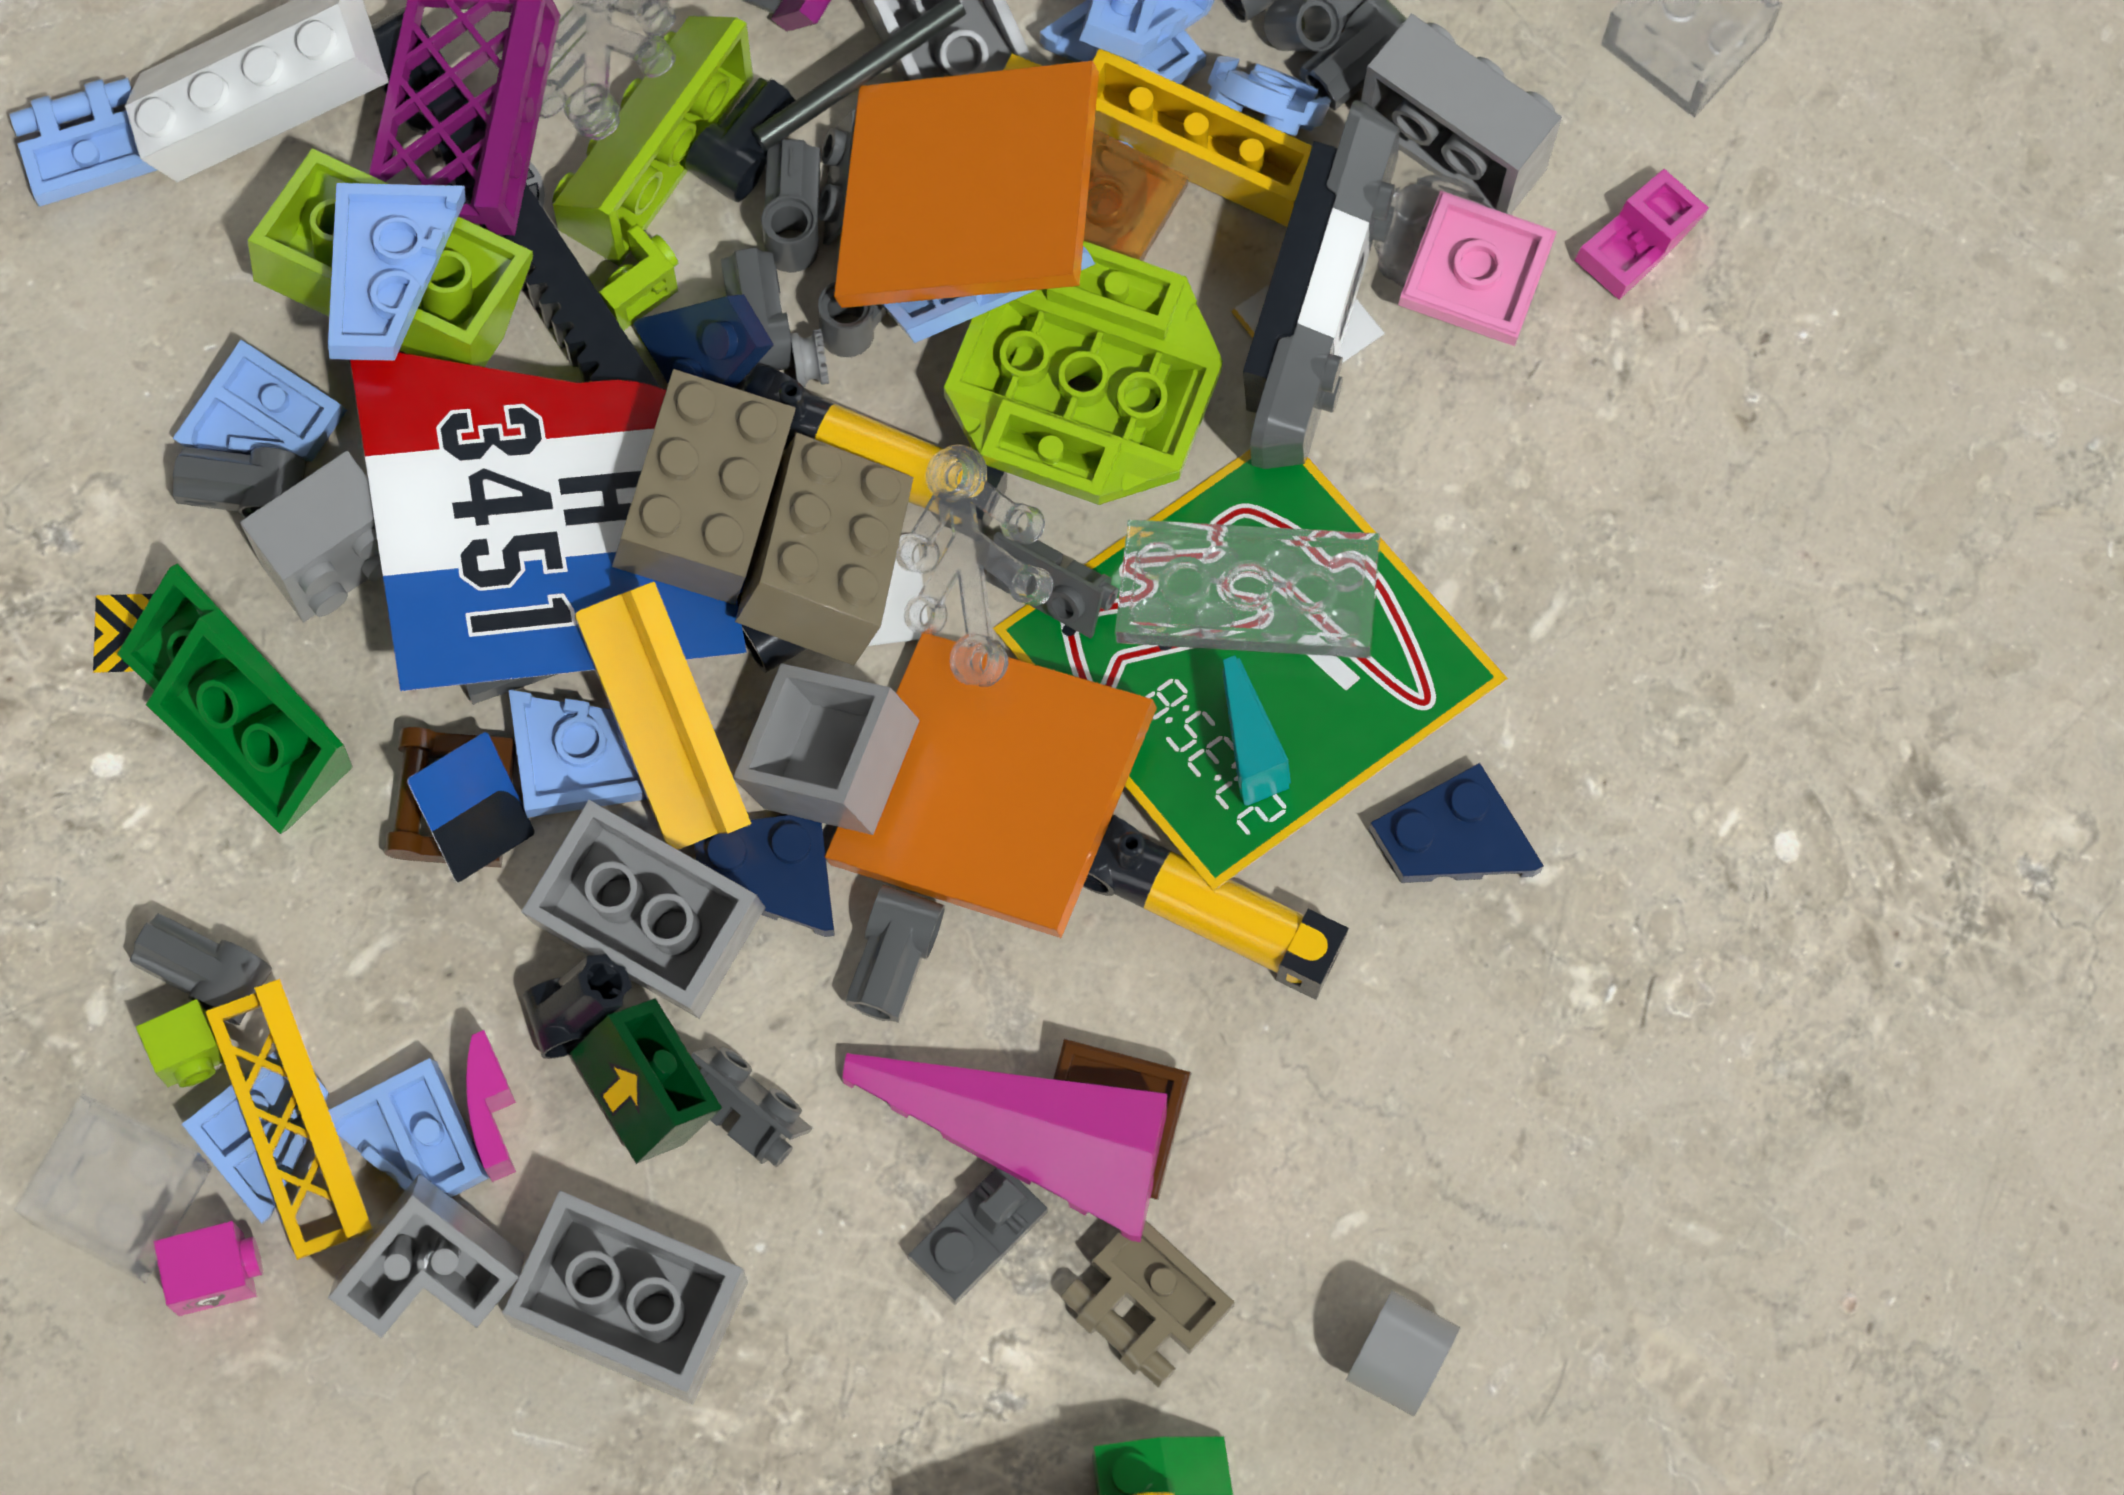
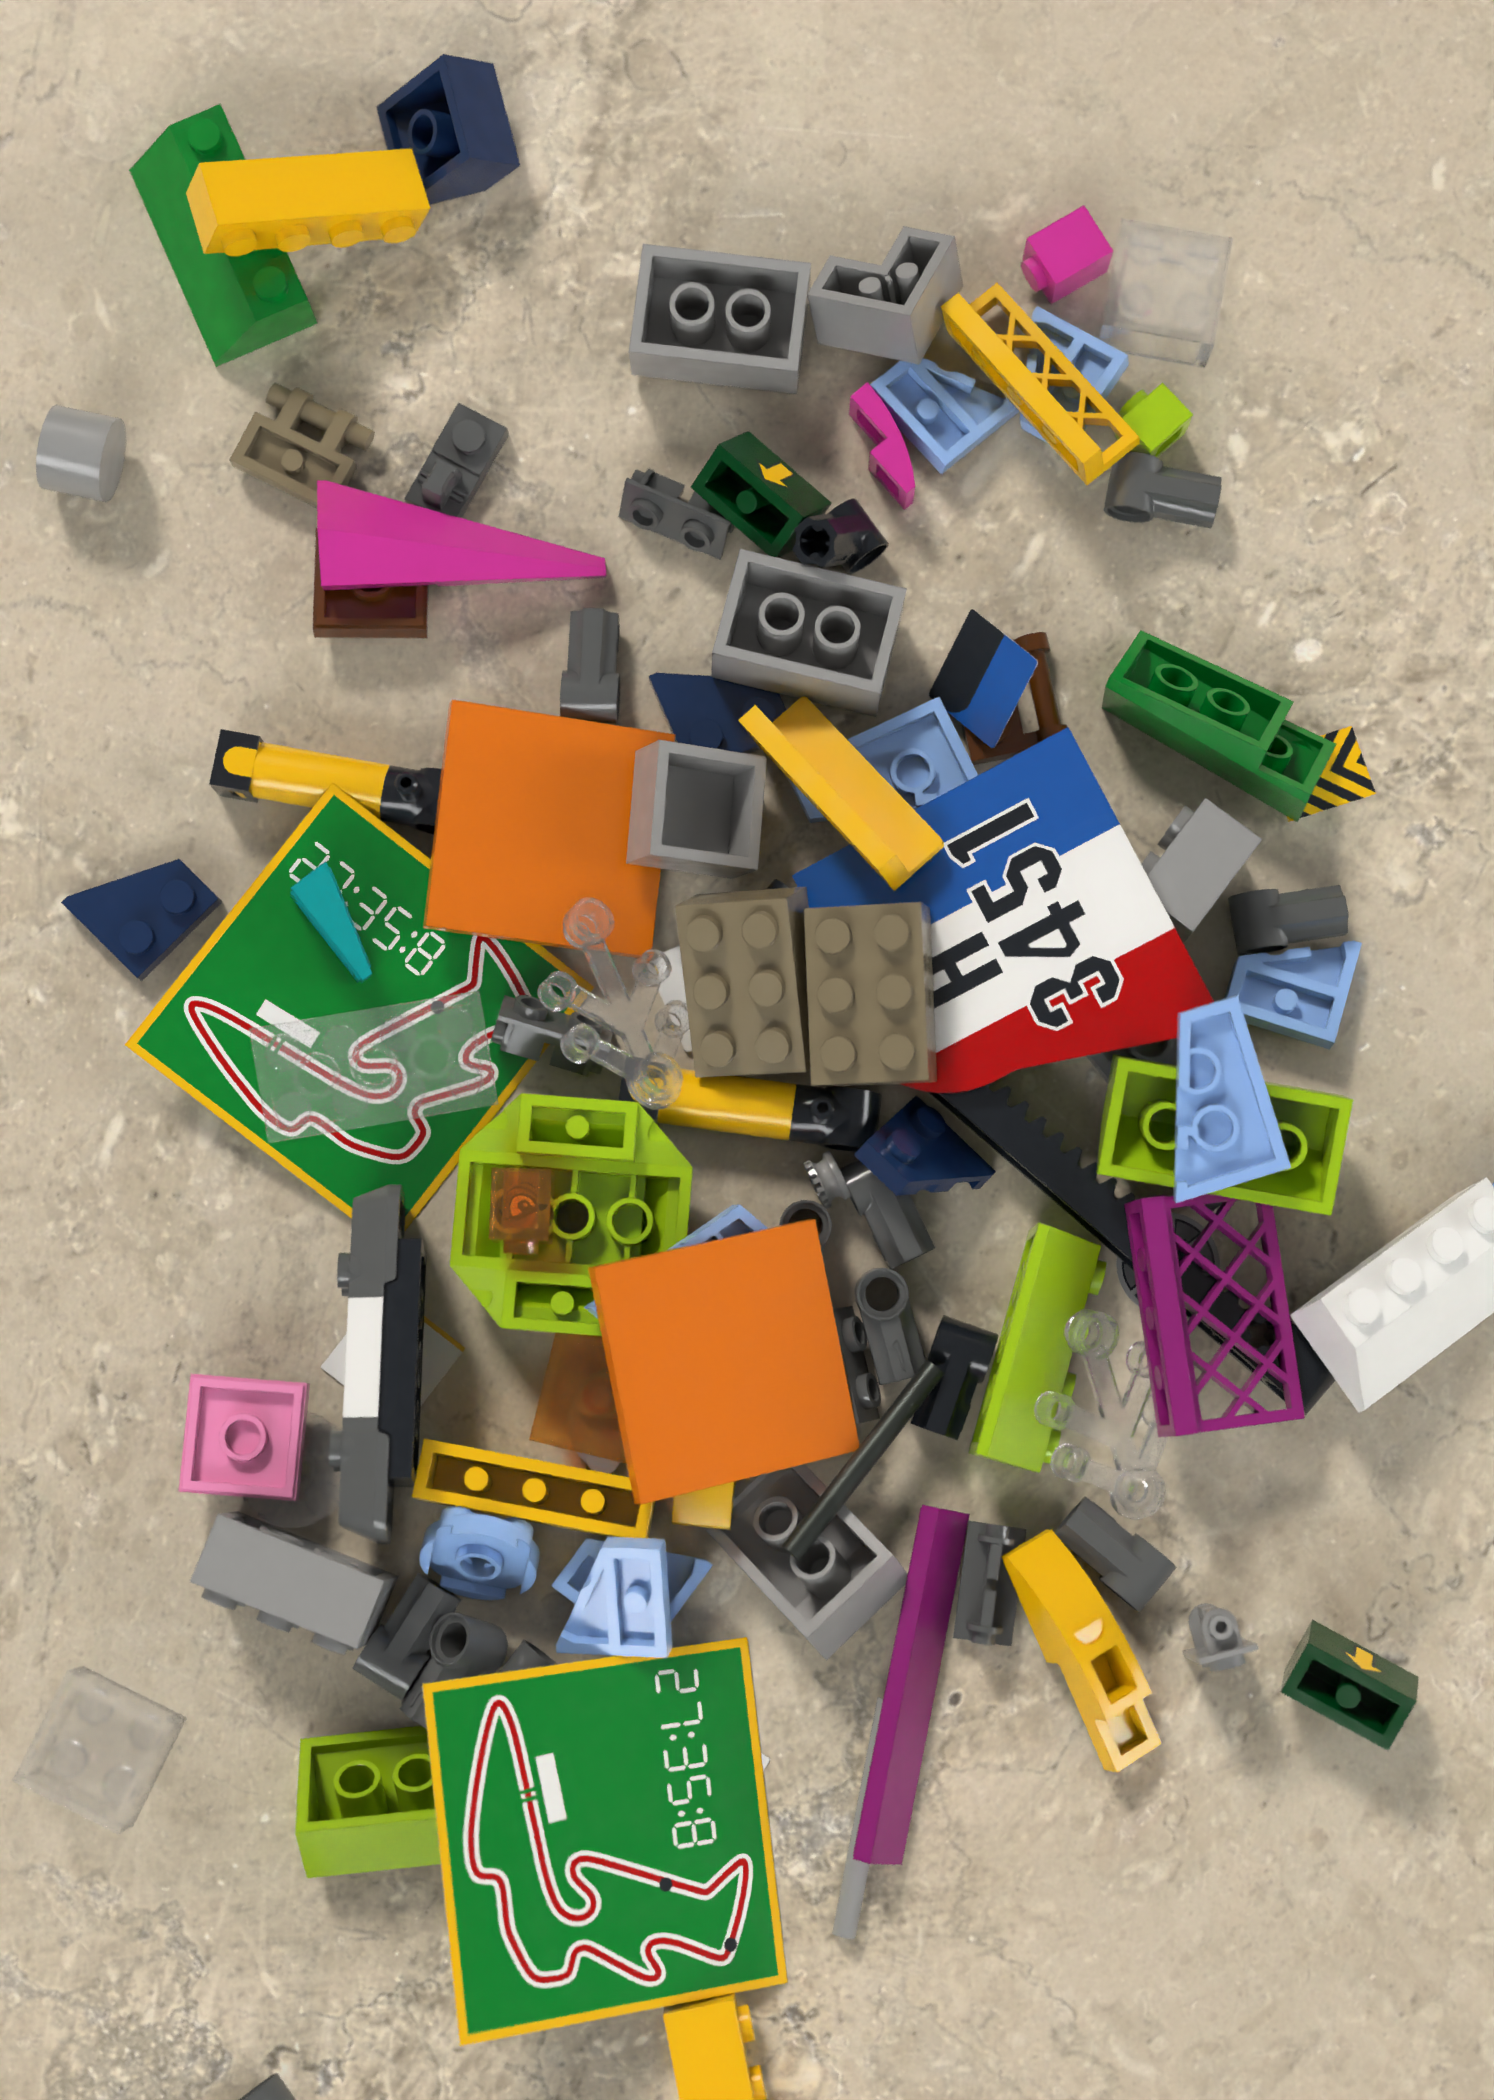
camera: 170 degrees right, 10 degrees up
(641, 288) = (1005, 1200): lime bracket -> none
(1130, 380) = (522, 1209): none -> clear orange brick
(1641, 234) = (106, 1530): dark pink slope -> none

